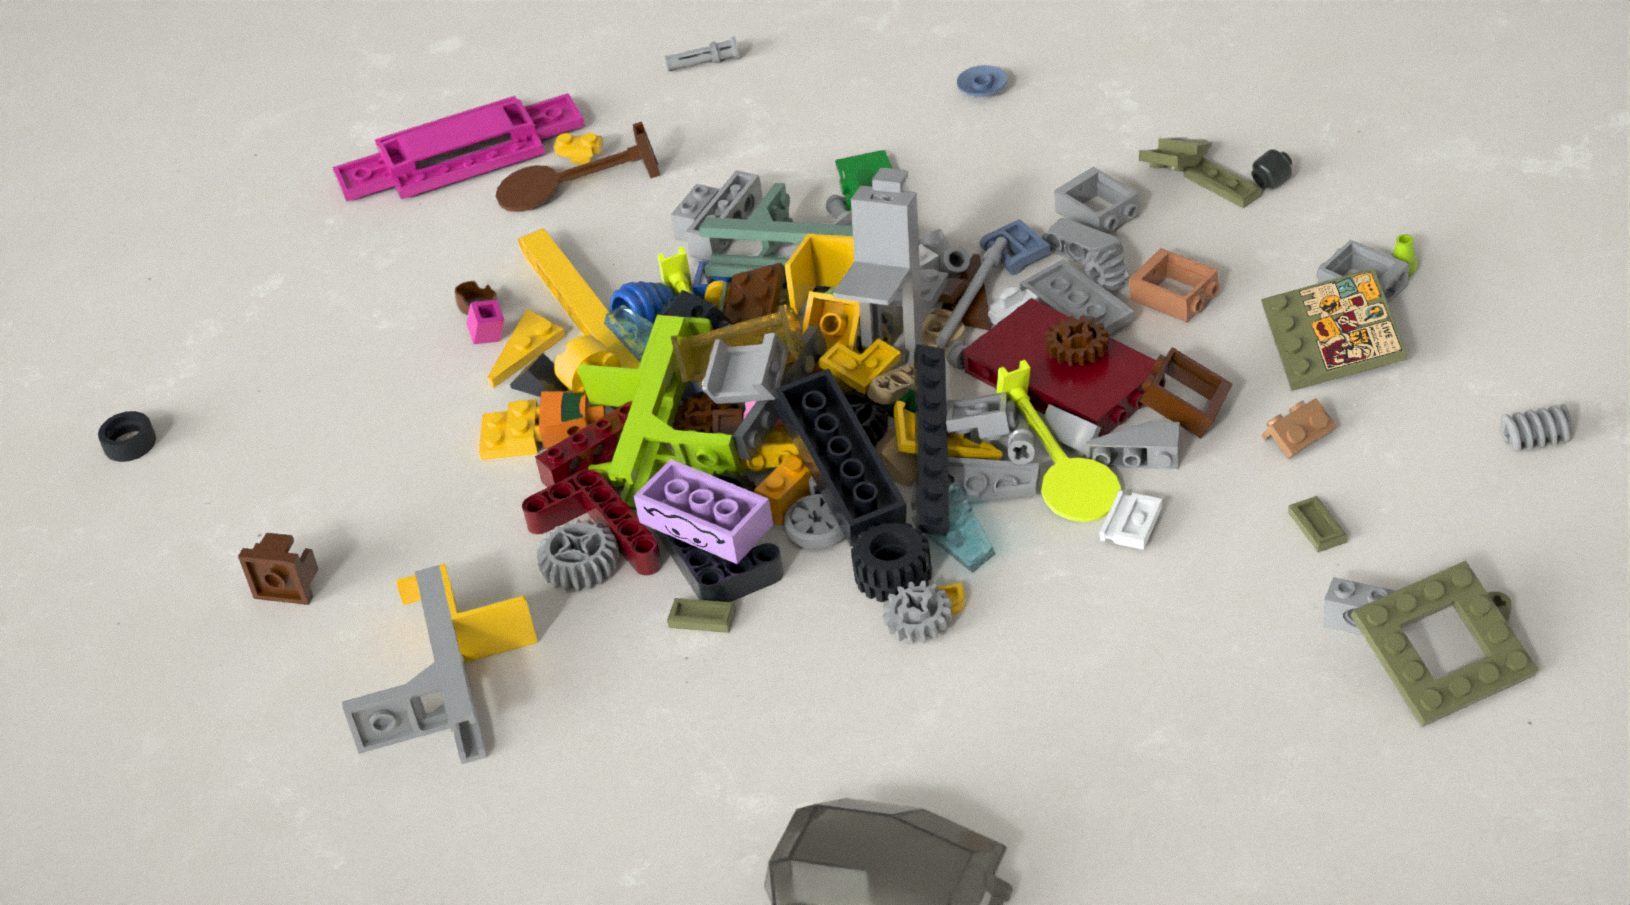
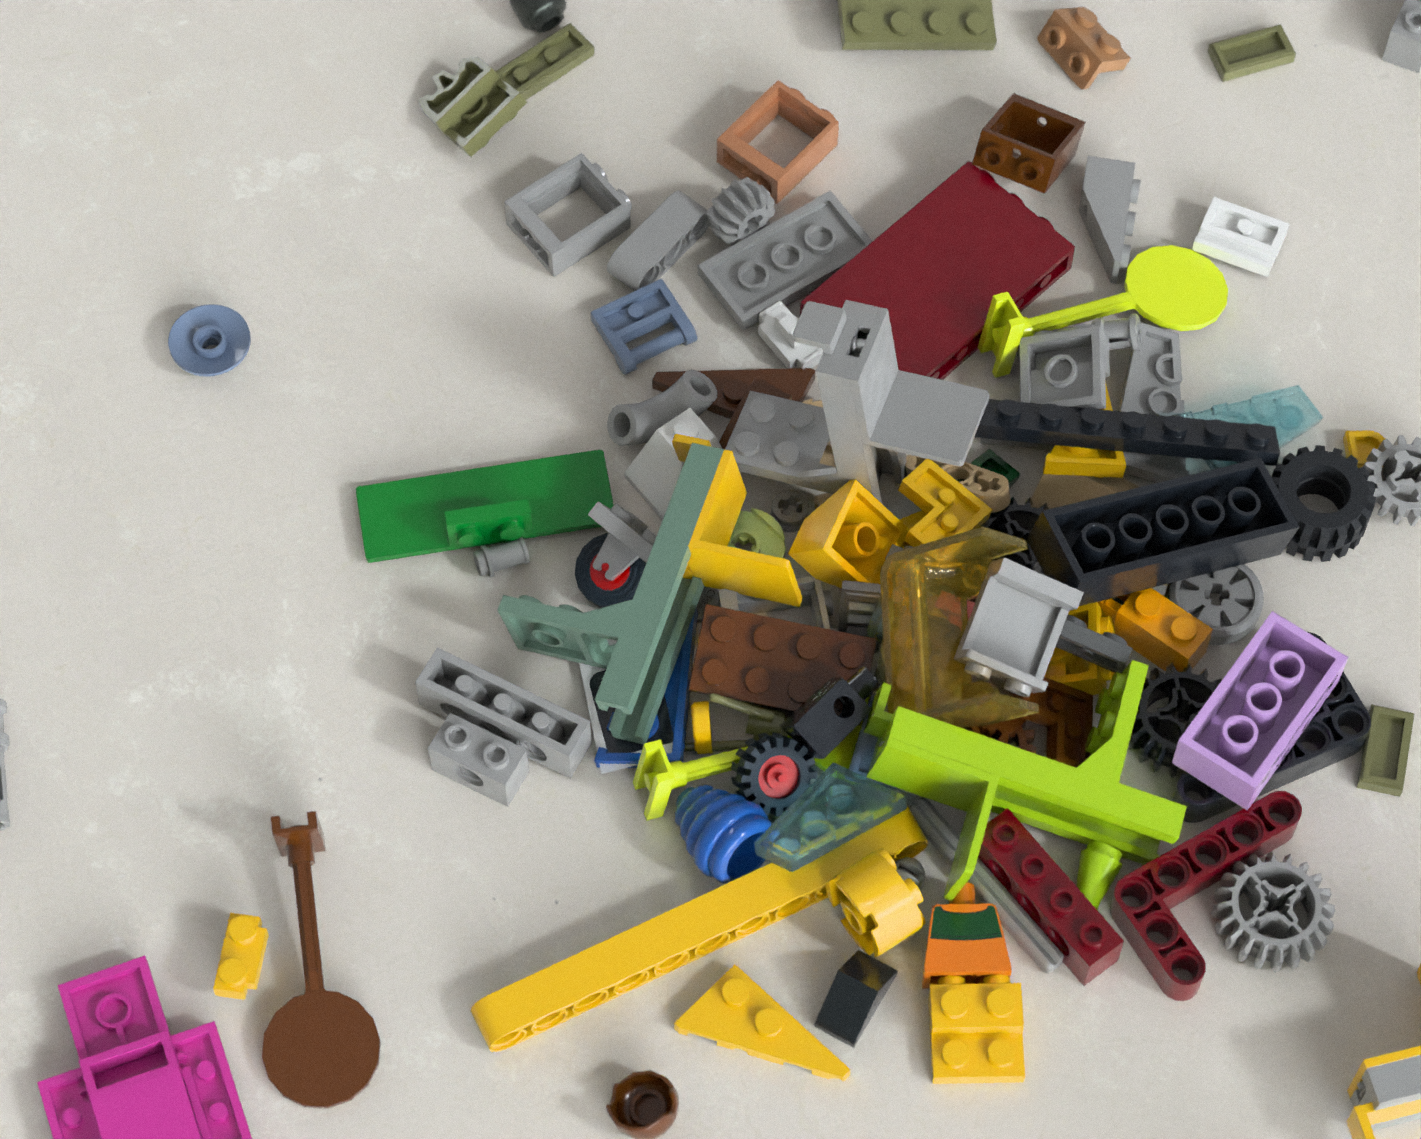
camera: 95 degrees left, 20 degrees up
(485, 322) = (721, 1079): dark pink brick -> none
(990, 260) = (687, 350): light grey bar -> none
(1070, 428) = (1073, 284): light grey slope -> none
(1079, 340) = (930, 244): reddish brown gear -> none

